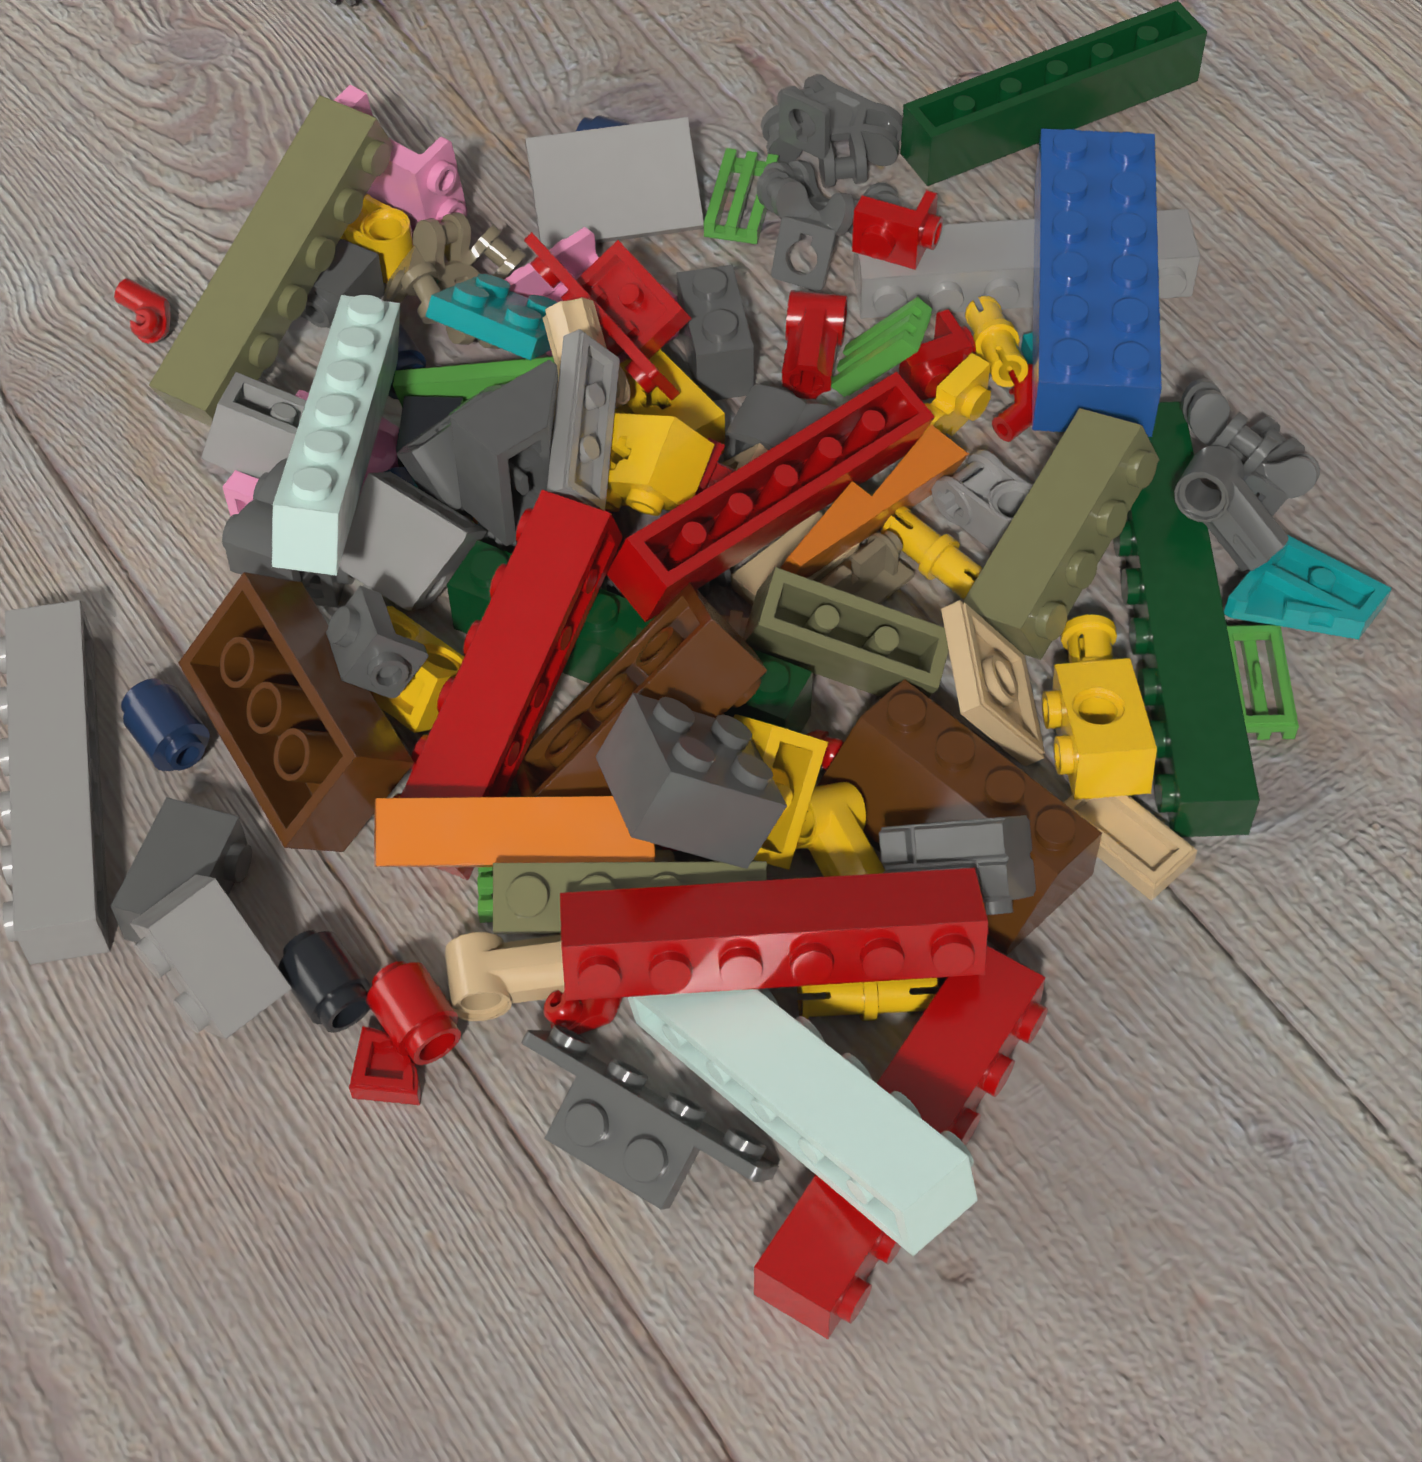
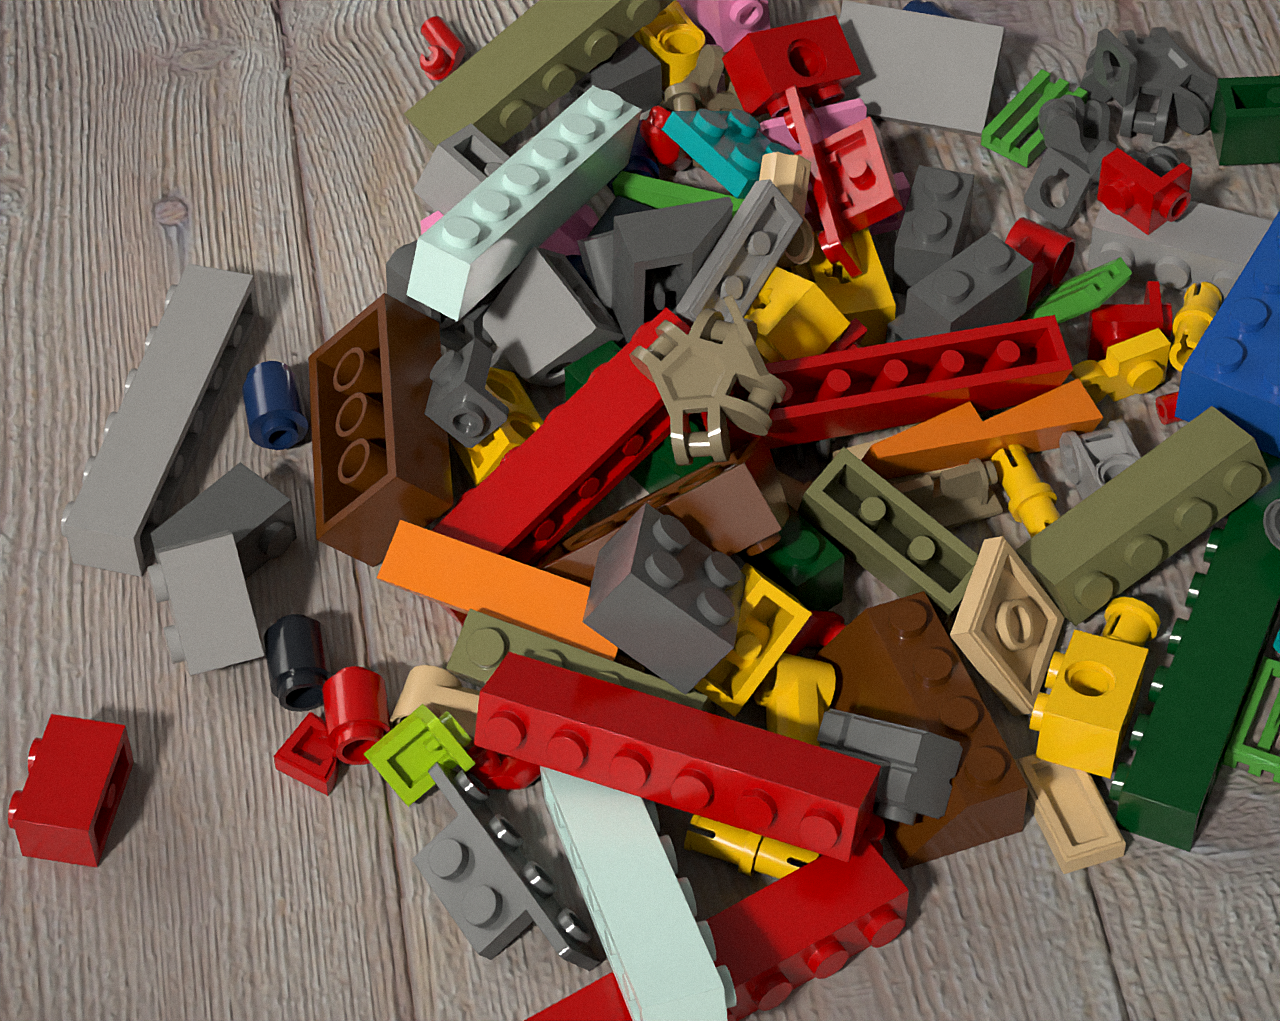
camera: 25 degrees right, 5 degrees down
(158, 1210) = (71, 790): none -> red brick
(417, 328) = (662, 146): none -> red arm
(497, 1023) = (415, 747): none -> lime bracket
(503, 212) = (799, 54): none -> red brick
(622, 543) = (698, 376): none -> dark tan piece
(798, 380) = (970, 291): none -> dark grey brick

